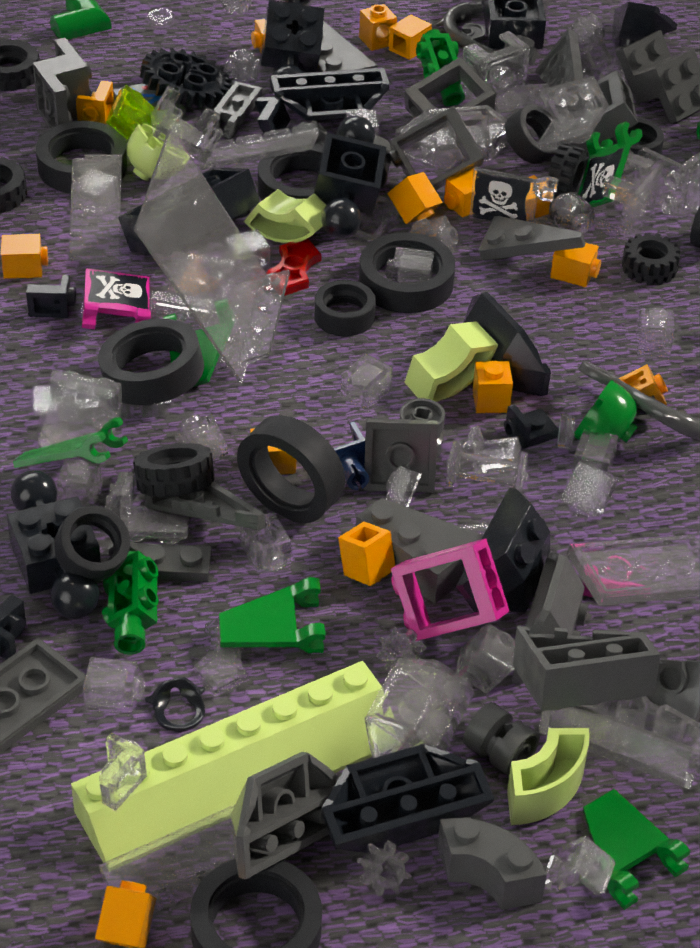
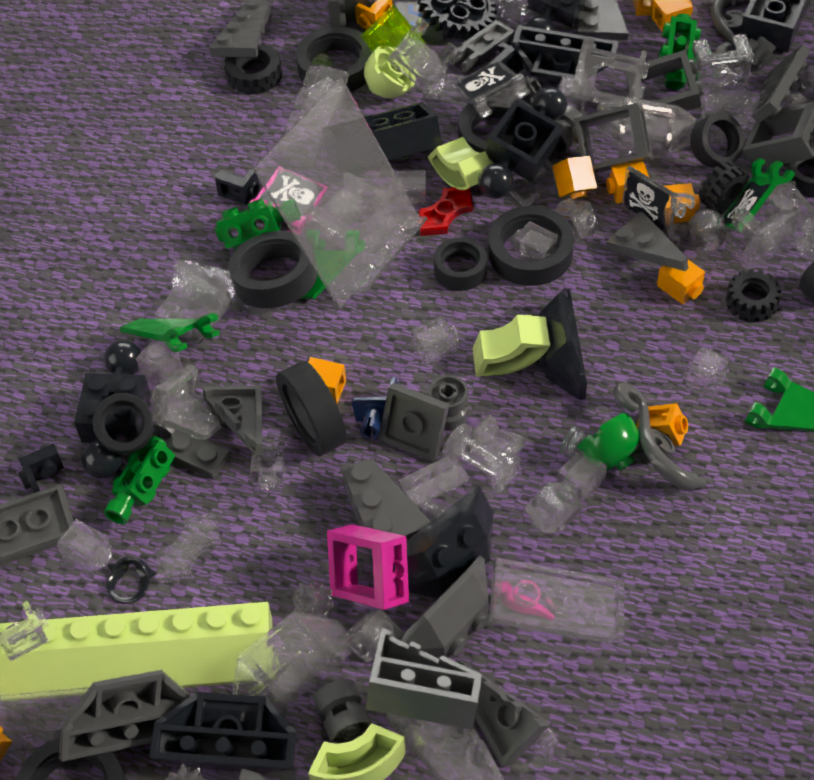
camera: 30 degrees right, 10 degrees up
(23, 256) = (237, 140): light orange brick -> none
(96, 323) = (245, 222): none -> green brick
(174, 469) = (234, 374): black tyre -> none
(203, 432) = (277, 350): clear bracket -> none
(272, 620) = (233, 533): green flag -> none
(276, 132) = (489, 83): none -> flag
(366, 553) = (335, 502): light orange brick -> none
(372, 99) = (587, 68): none -> clear window
(402, 485) = (397, 456): clear bracket -> none
(459, 498) = (433, 480): none -> clear bracket
(492, 386) = (533, 380): light orange brick -> none
(530, 427) = (546, 428): black bracket -> none
(574, 110) = (759, 129): clear bracket -> none

